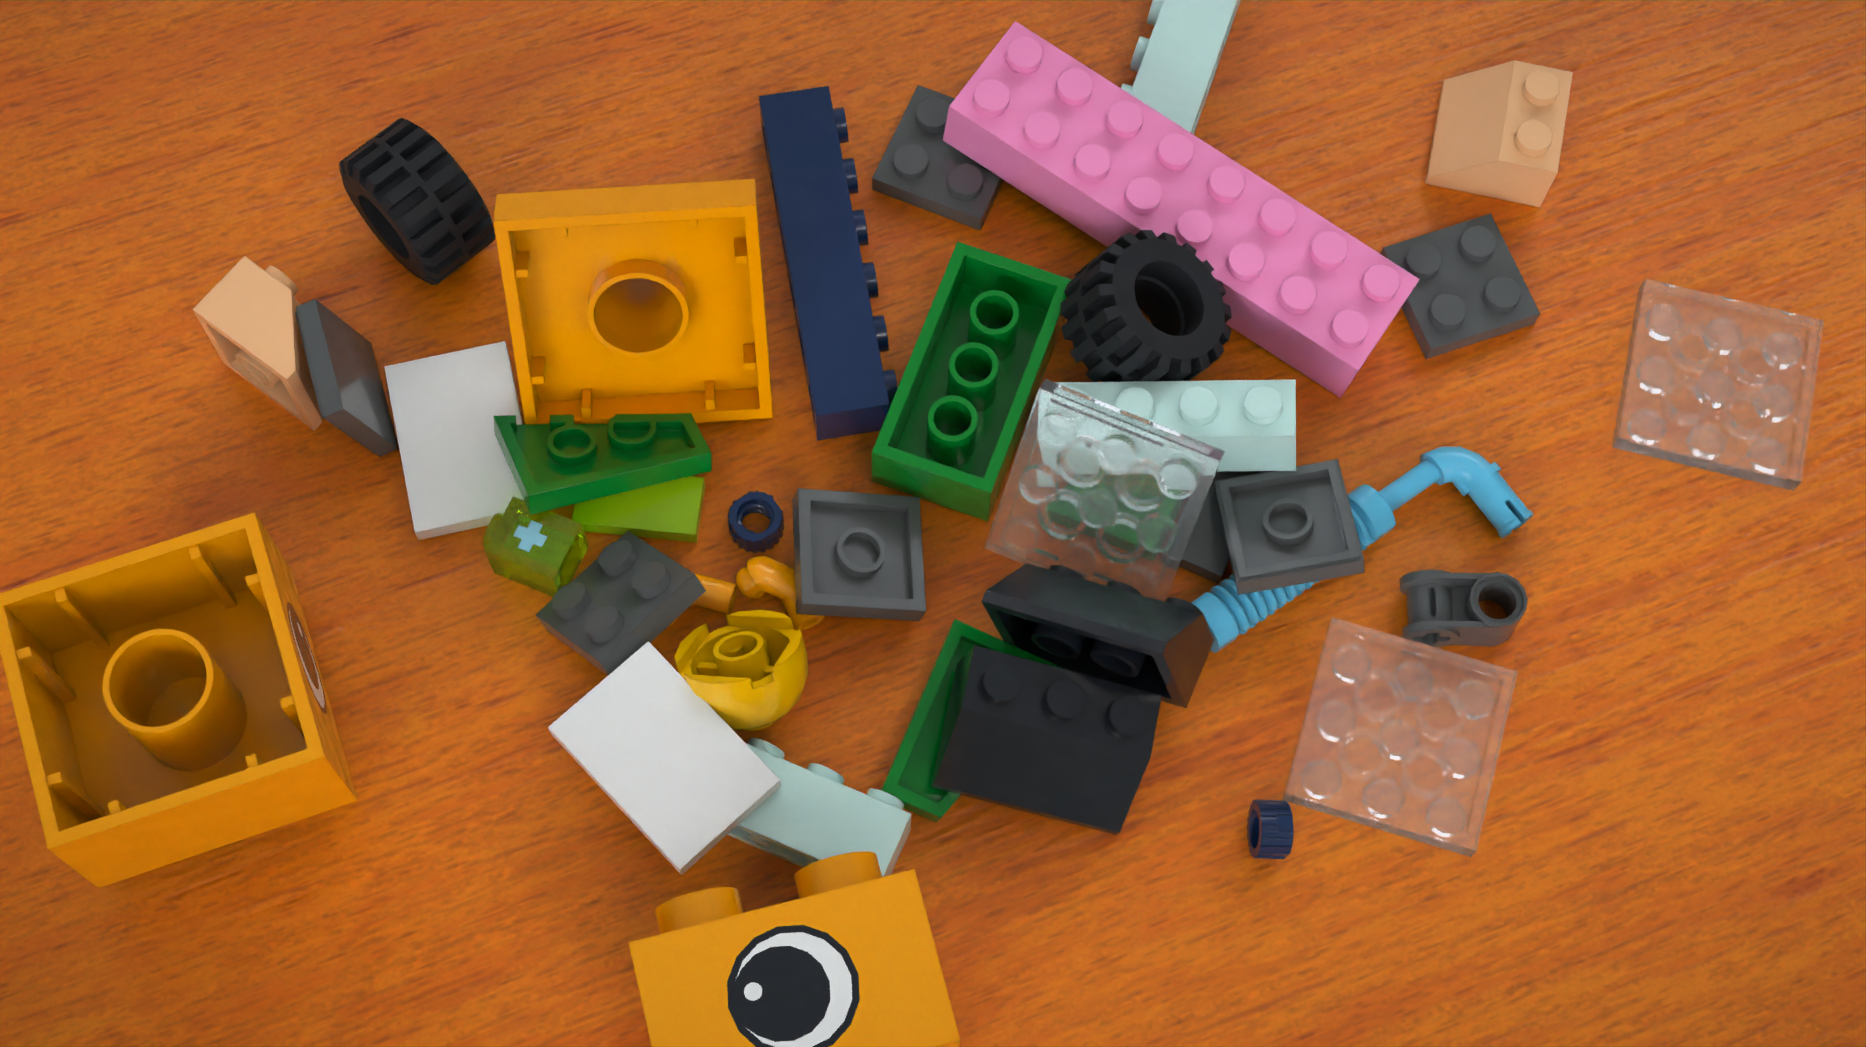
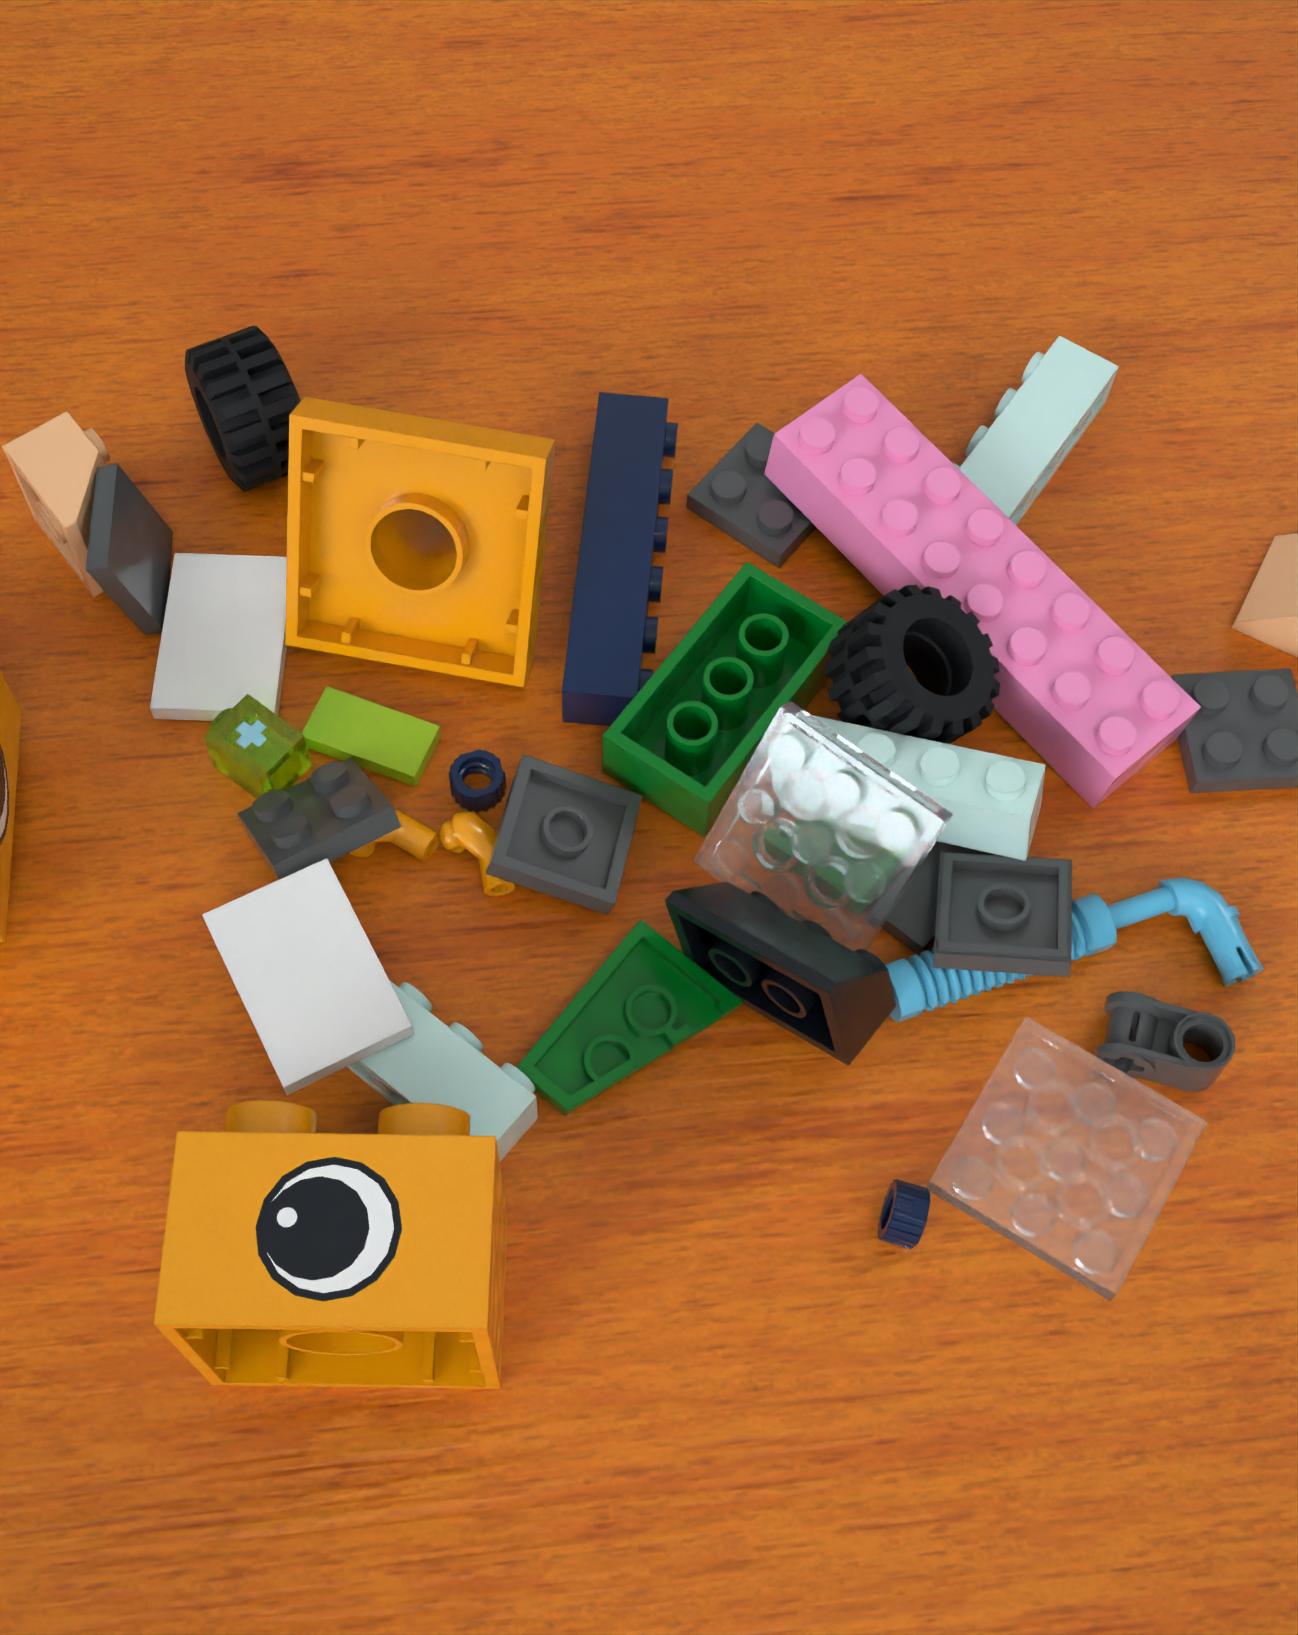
camera: 15 degrees right, 5 degrees down
(584, 462) = (326, 680): green wing -> none
(747, 669) = (419, 915): yellow cylinder -> none
(1045, 739) = (696, 1060): black slope -> none

